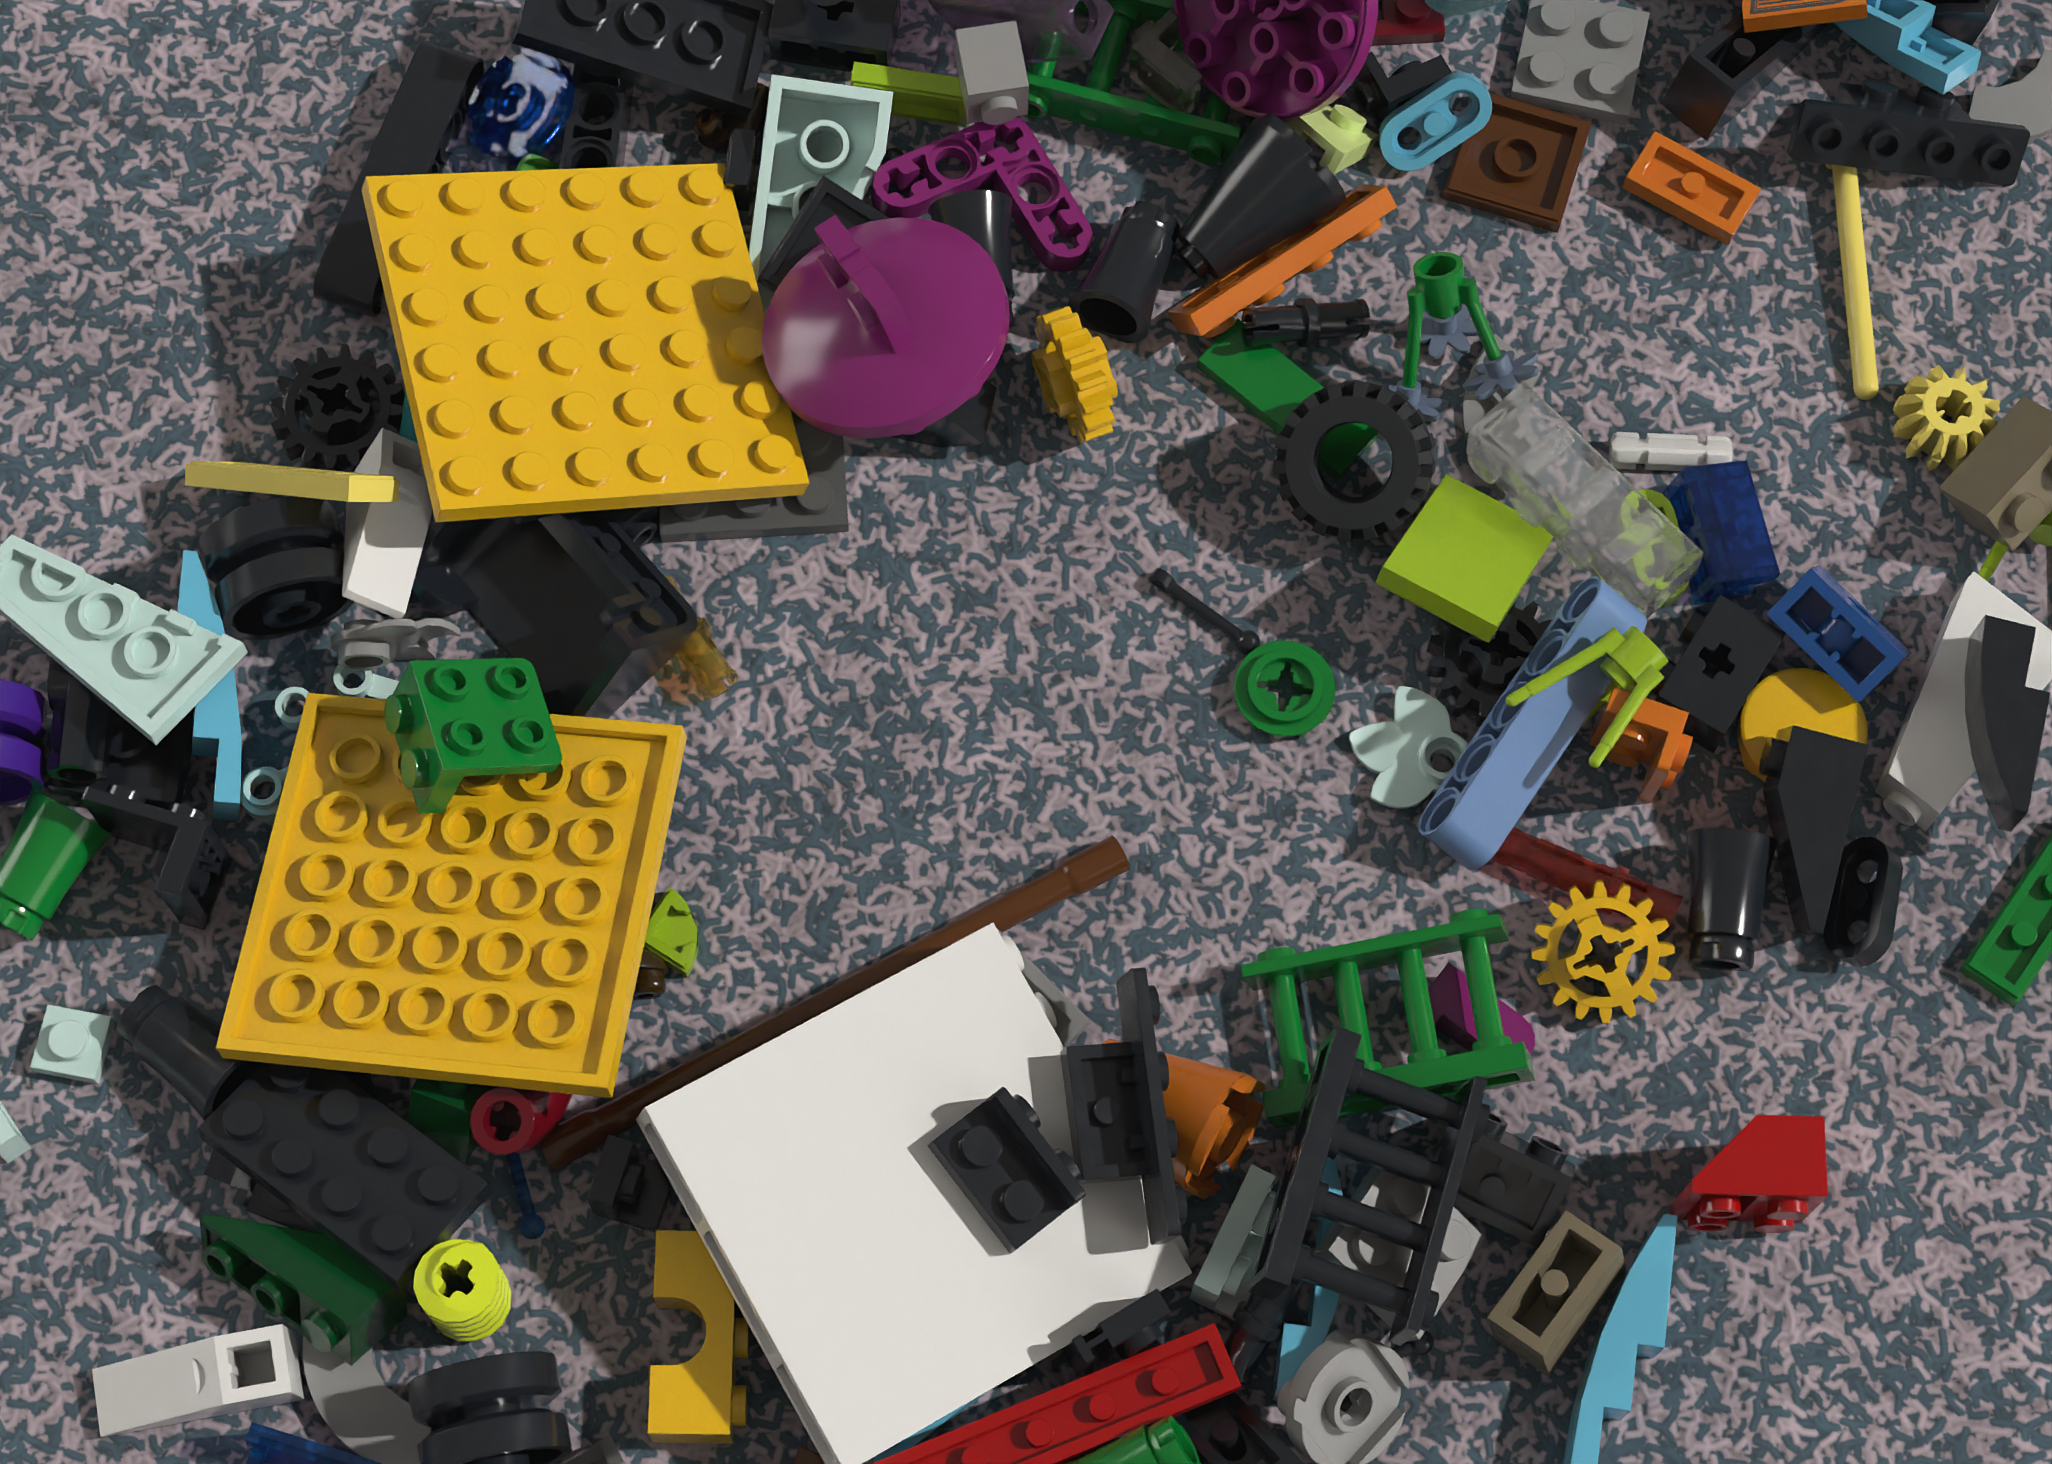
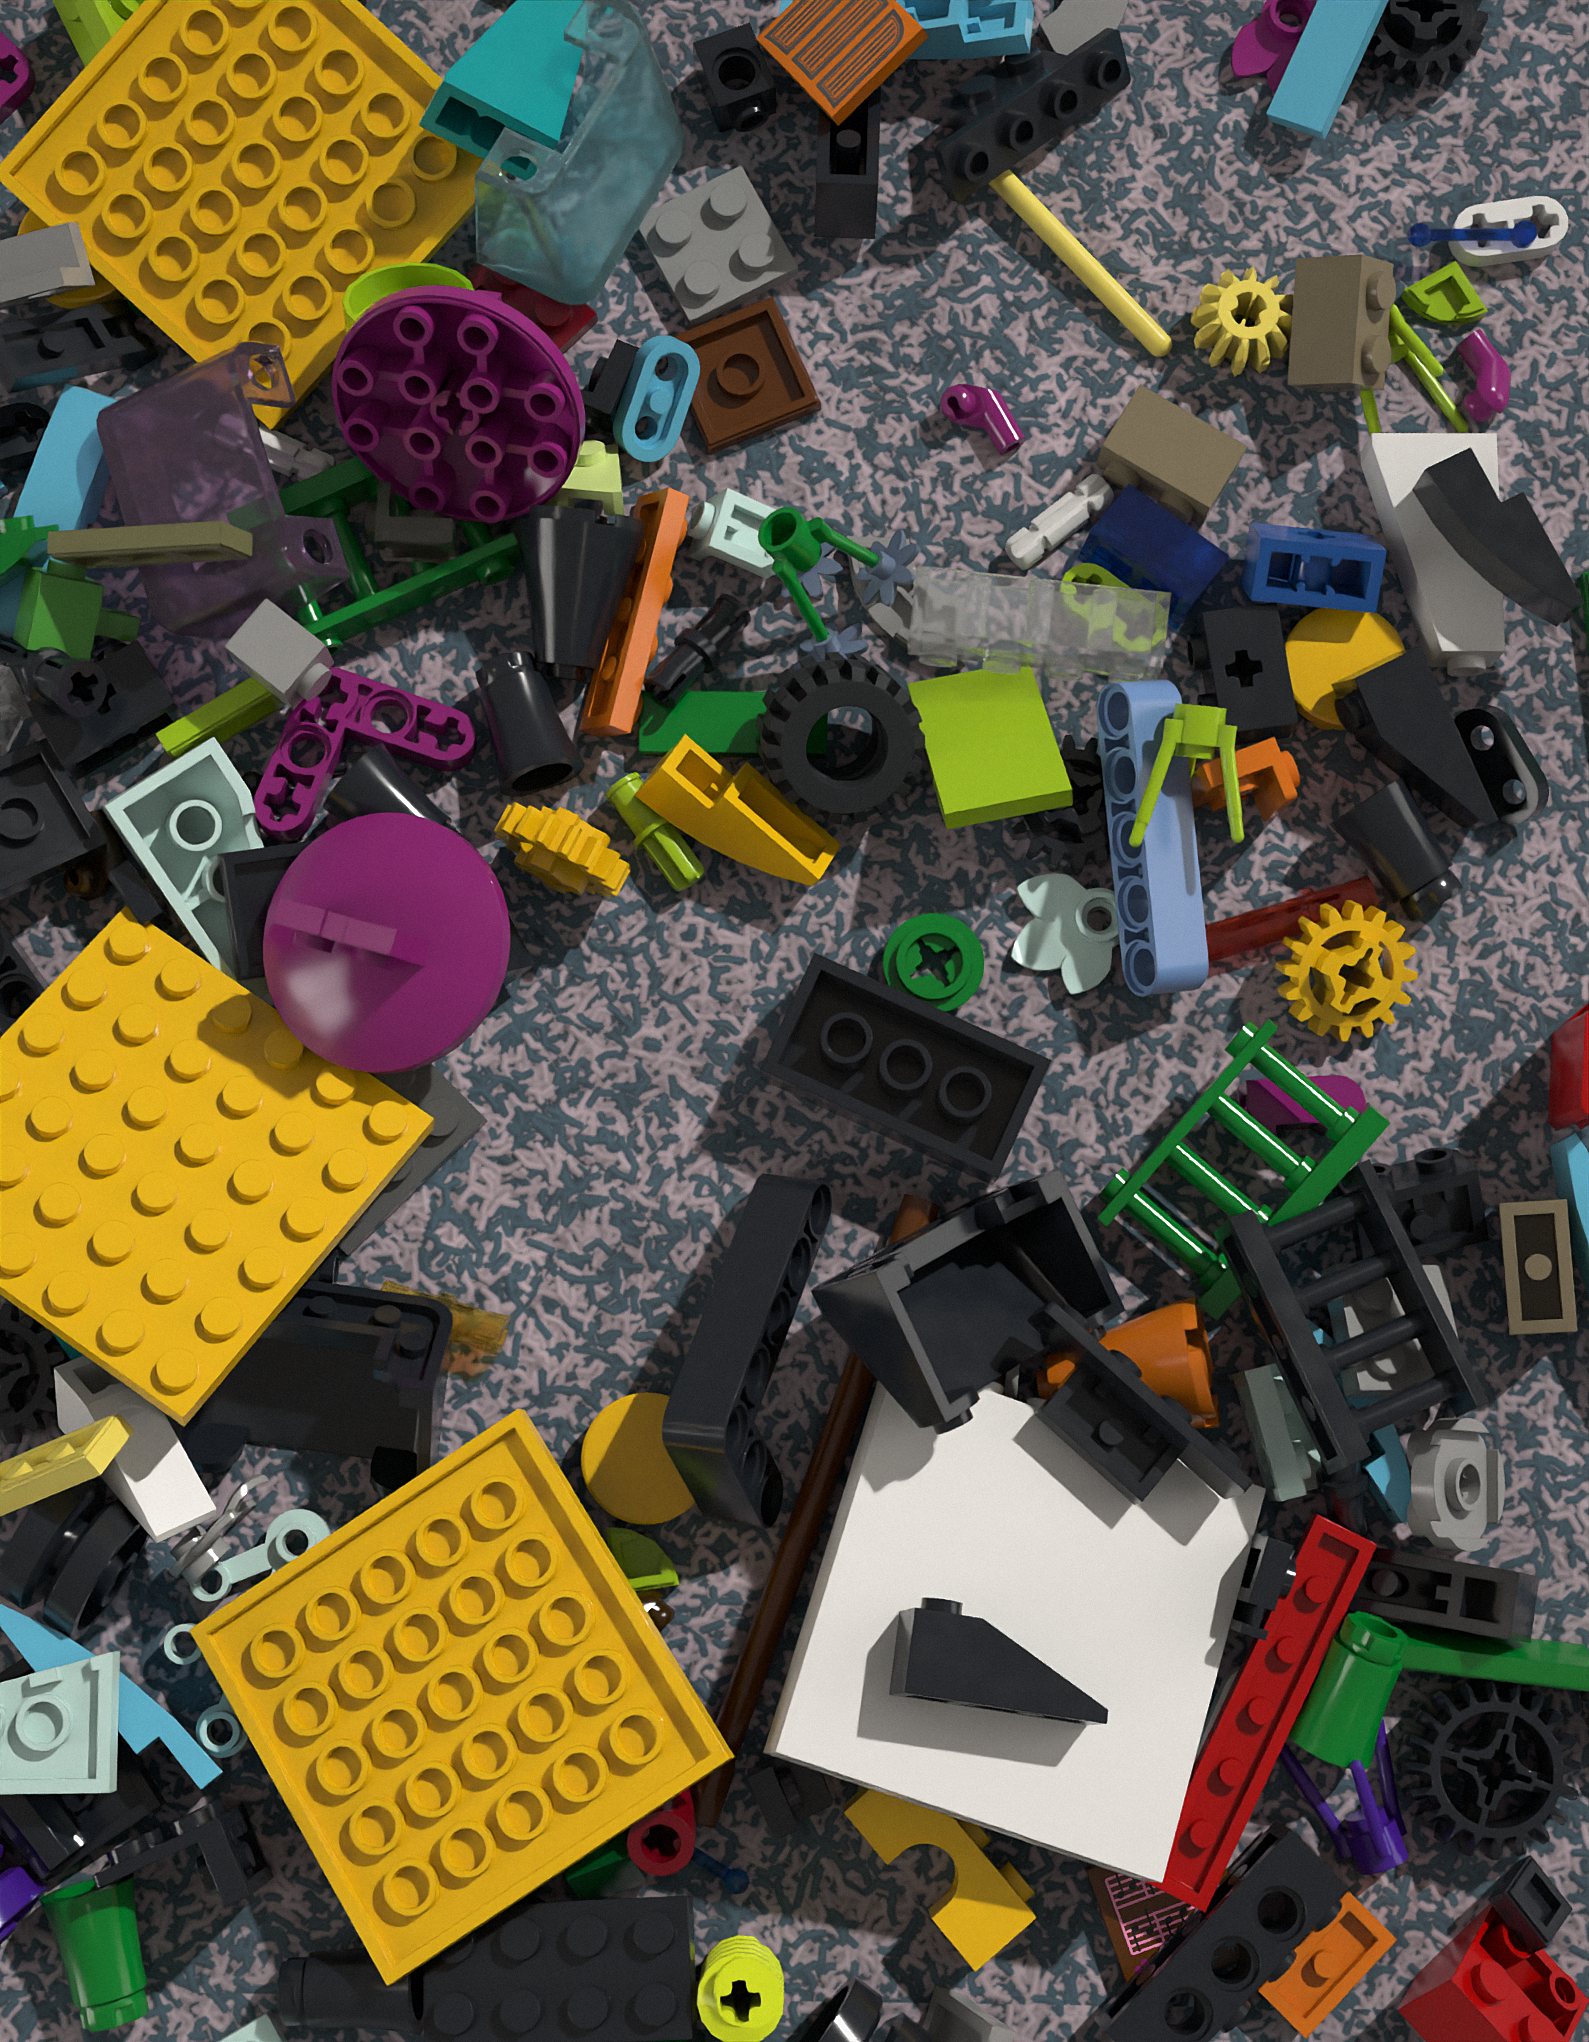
camera: 40 degrees left, 10 degrees up
(468, 722) = (353, 1555): green bracket -> none
(745, 862) = (629, 1464): none -> yellow tile
(848, 1180) = (977, 1666): none -> black slope
(871, 821) = (735, 1351): none -> black beam
(1009, 1168) = (1077, 1542): black bracket -> none
(1075, 921) = (956, 1295): none -> black windscreen
(1158, 426) = (655, 835): none -> lime axle
(1191, 739) = (904, 1069): none -> black brick
(1230, 458) = (737, 814): none -> yellow slope
(1245, 640) = (871, 949): black hinge -> none
(1397, 253) = (729, 530): none -> light aqua bracket
(1682, 327) = (983, 410): none -> magenta arm
(1691, 188) = (896, 288): orange plate -> none
(1799, 470) = (1169, 456): none -> dark tan brick

